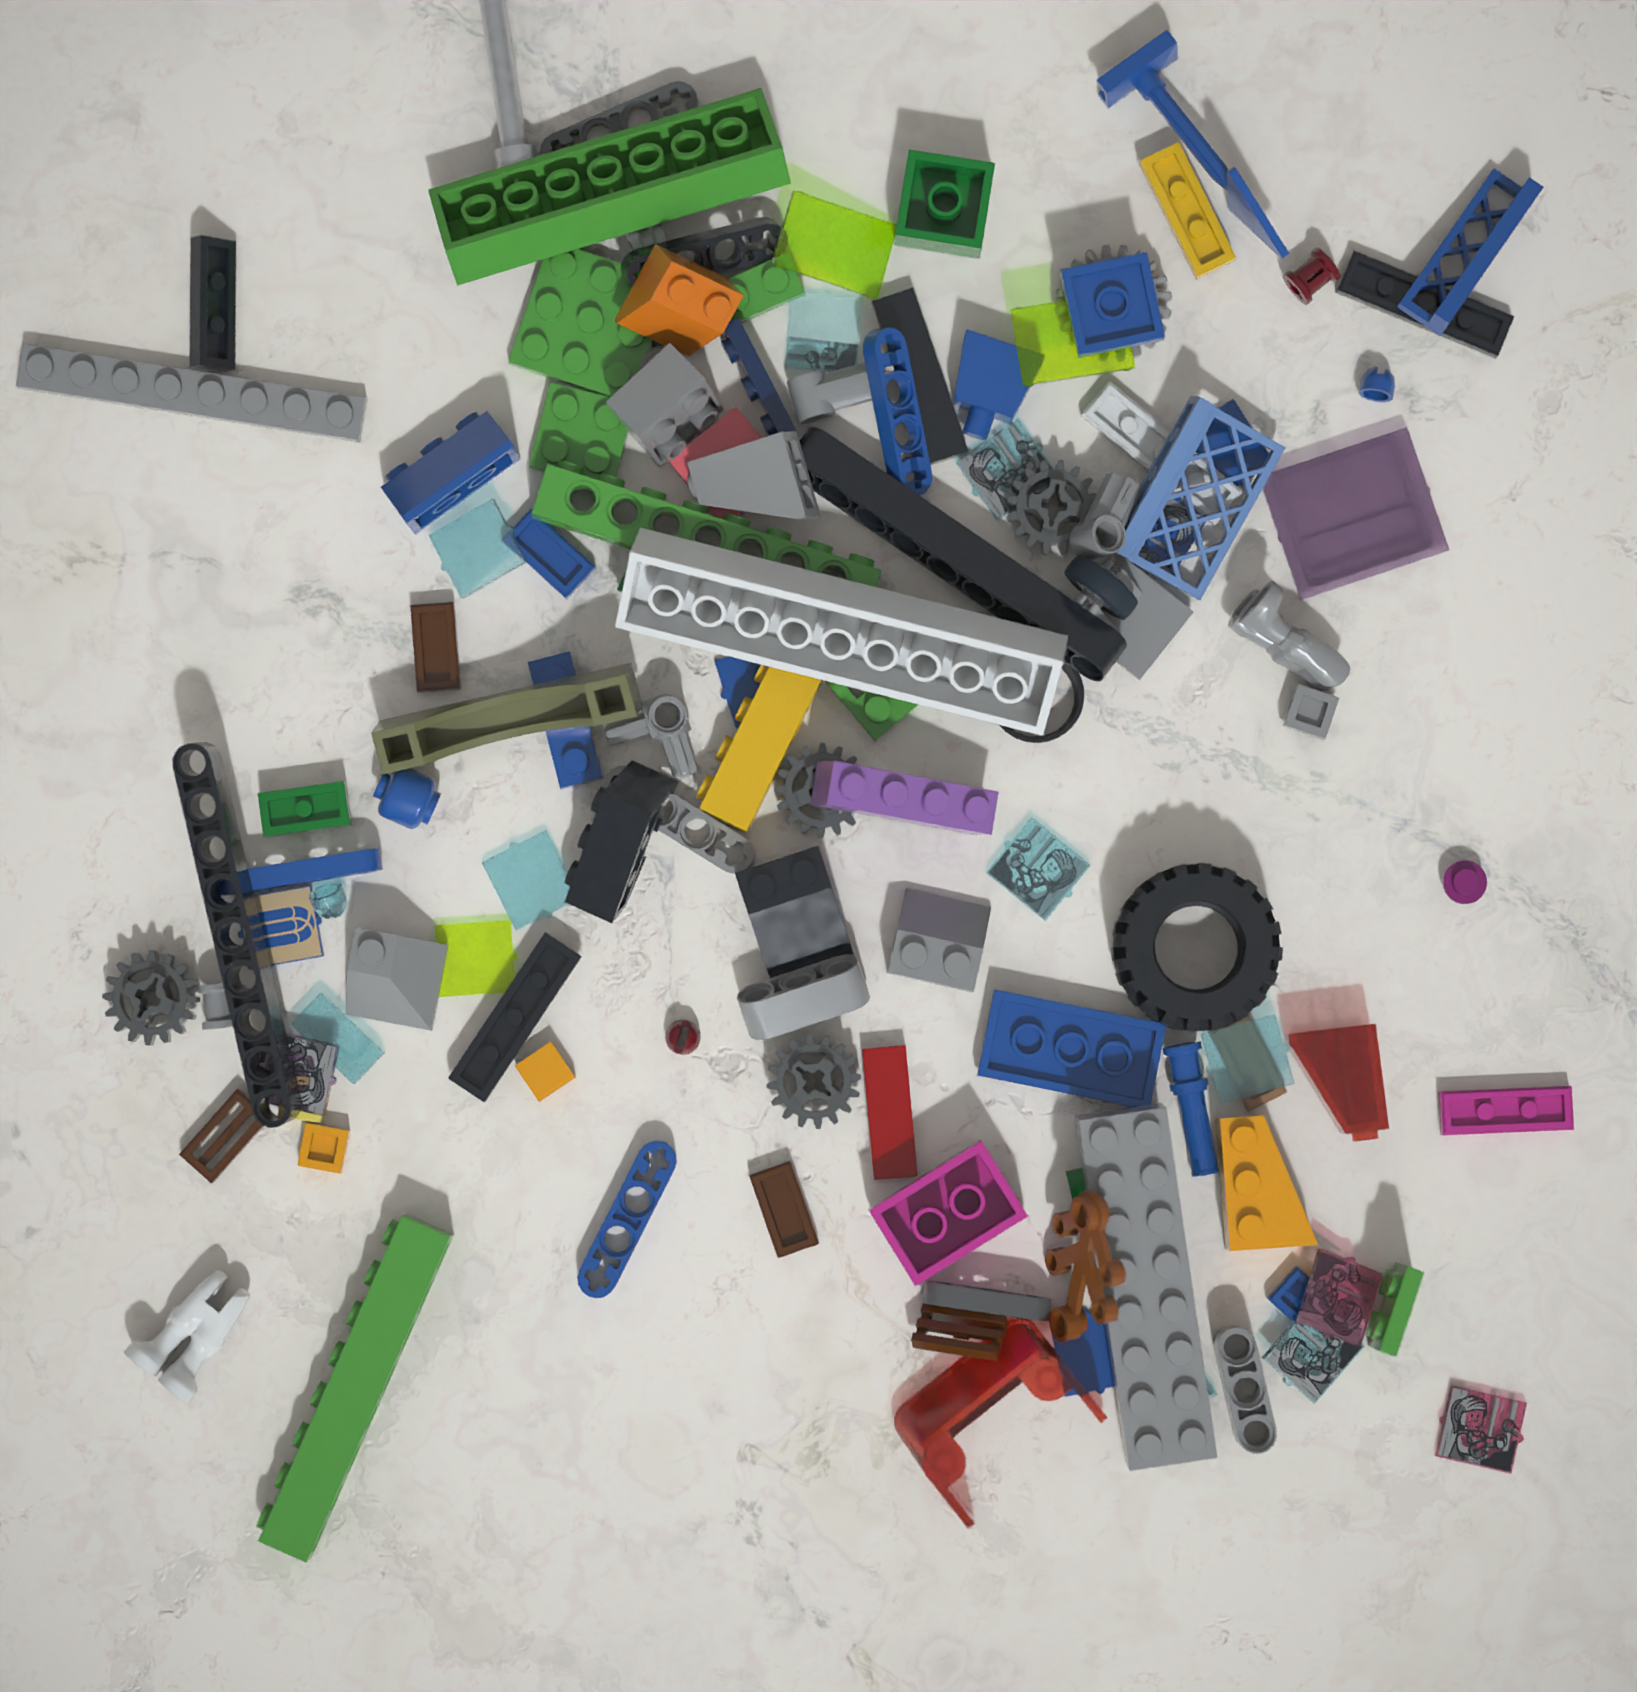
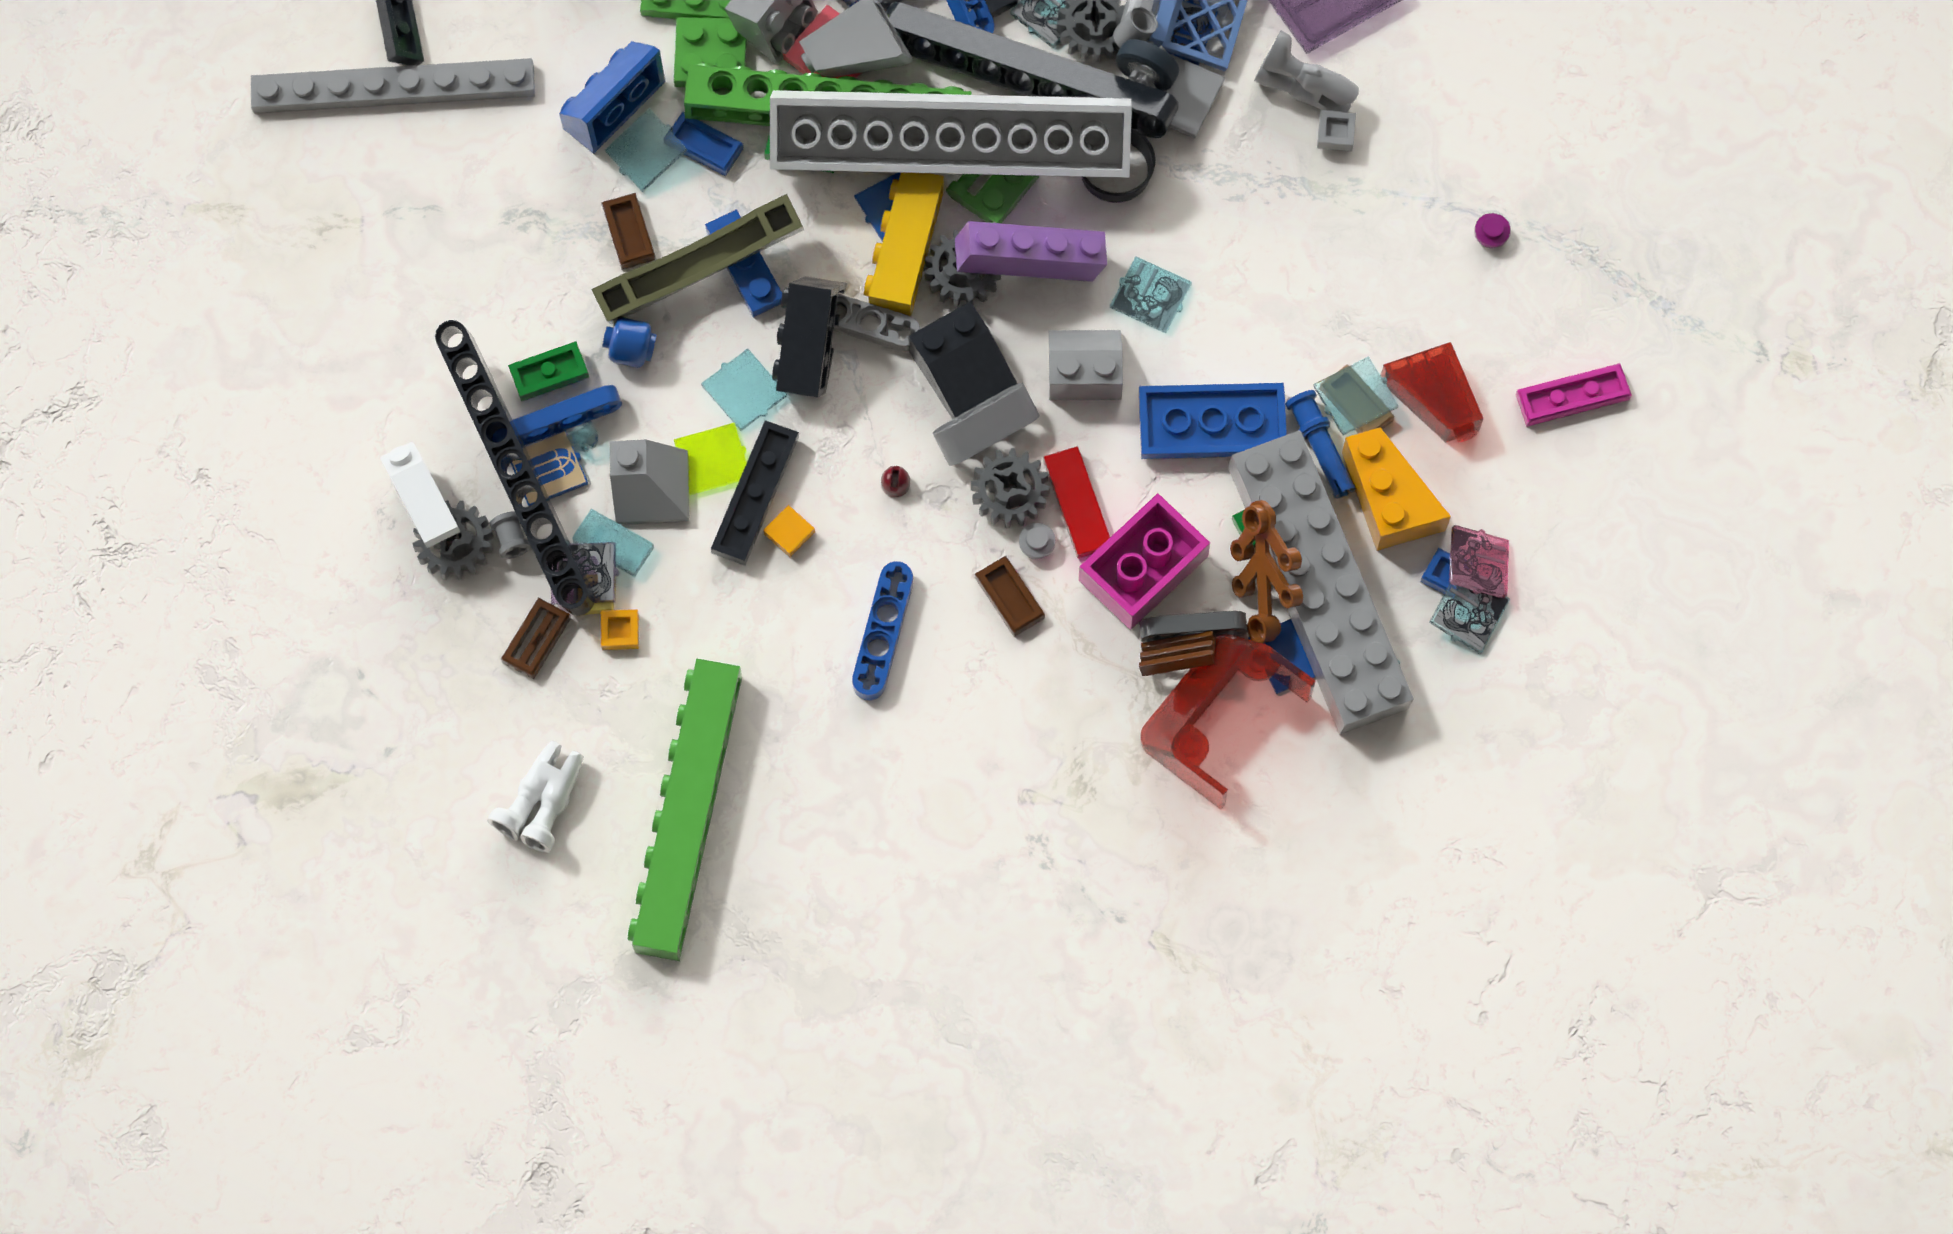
camera: 15 degrees left, 15 degrees down
(120, 943) = (419, 494): none -> white slope
(672, 737) = (810, 247): light grey axle -> none
(830, 1151) = (1037, 540): none -> light grey plate
(1254, 1409) = (1422, 666): light grey beam -> none
(1256, 947) = (1299, 274): black tyre -> none
(1389, 1324) = (1525, 545): bright green plate -> none
(1481, 1429) = (1622, 644): piece -> none

